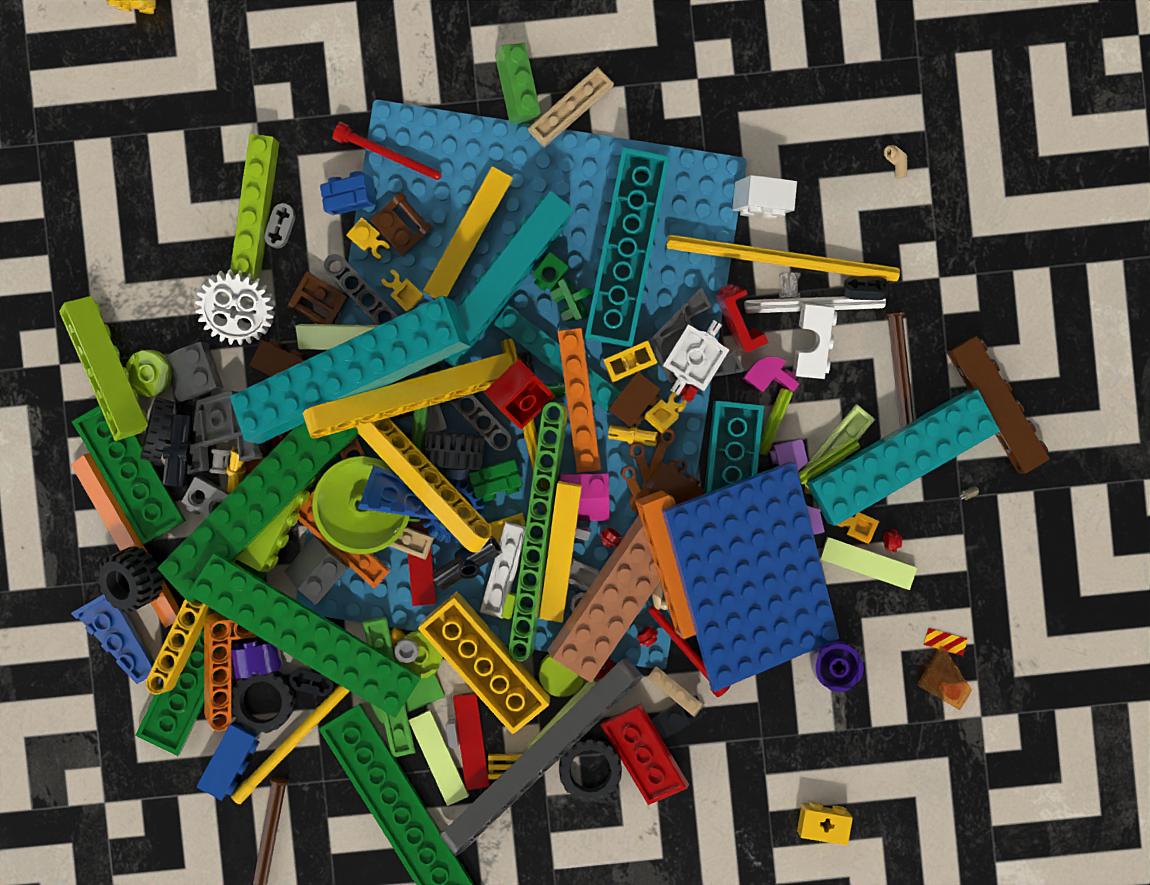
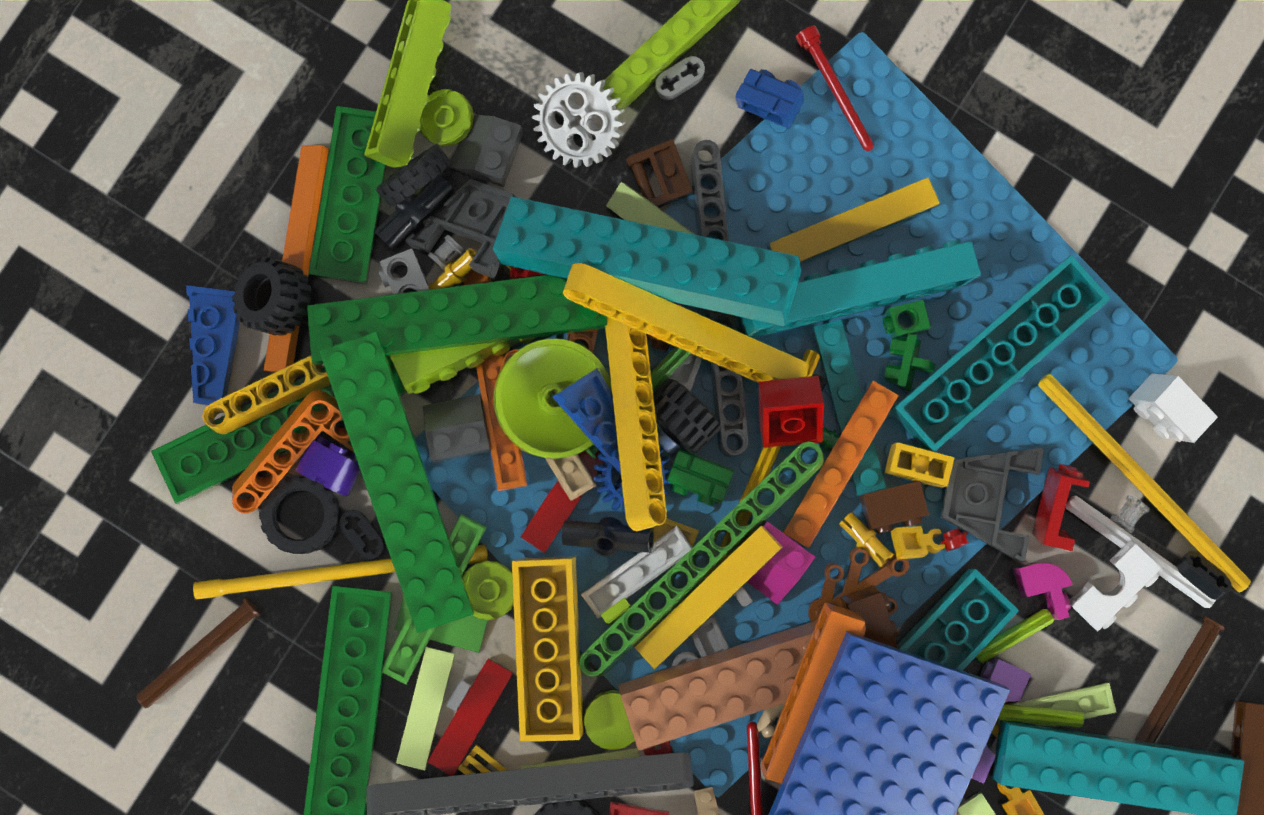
camera: 35 degrees right, 5 degrees down
(228, 761) = (220, 548): blue brick -> none
(273, 359) = (575, 193): reddish brown brick -> none
(366, 236) = (755, 150): yellow plate -> none
(395, 229) = (788, 165): reddish brown plate -> none
(404, 292) = (751, 231): yellow plate -> none
(407, 650) = (481, 575): light grey tile -> none
(517, 83) = (1012, 119): bright green brick -> none
(570, 107) = (1045, 180): tan tile -> none
(610, 537) = (766, 622): red plate -> none
(647, 636) = (727, 749): red plate -> none
(696, 357) = (987, 511): white plate -> none

